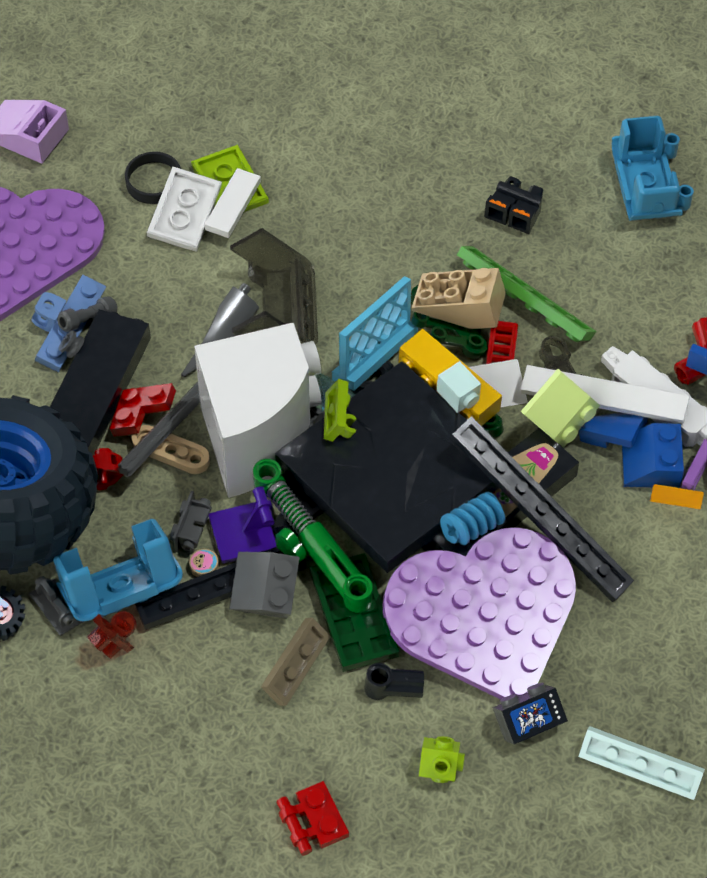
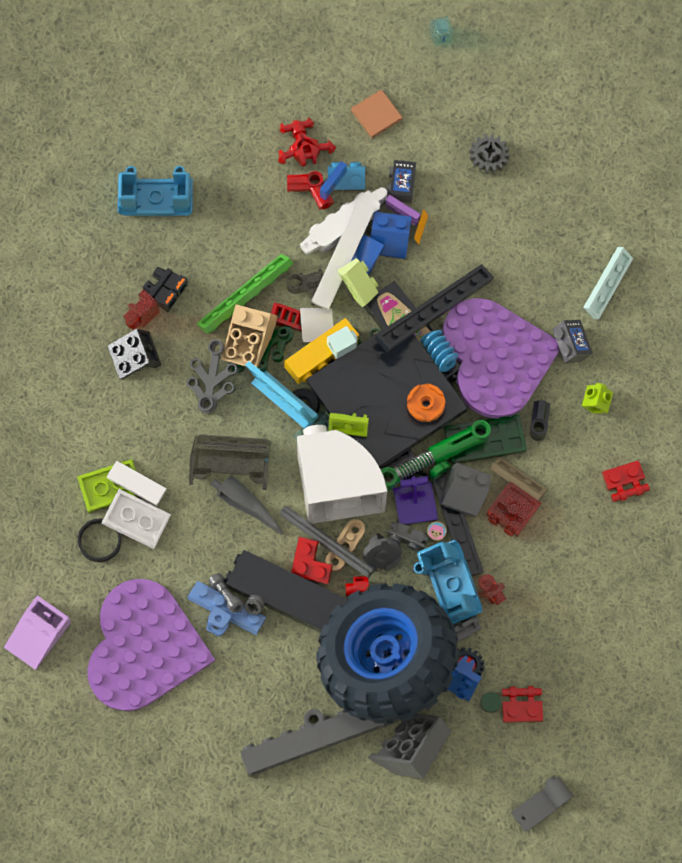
camera: 85 degrees left, 15 degrees up
(157, 488) = (382, 553): none -> dark grey tile
(243, 655) = (513, 510): none -> clear red plate
(365, 269) = (211, 379): none -> dark grey plant
(384, 492) = (426, 393): none -> orange plate
(418, 185) = (134, 353): none -> bracket
(474, 176) = (142, 312): none -> clear red hips

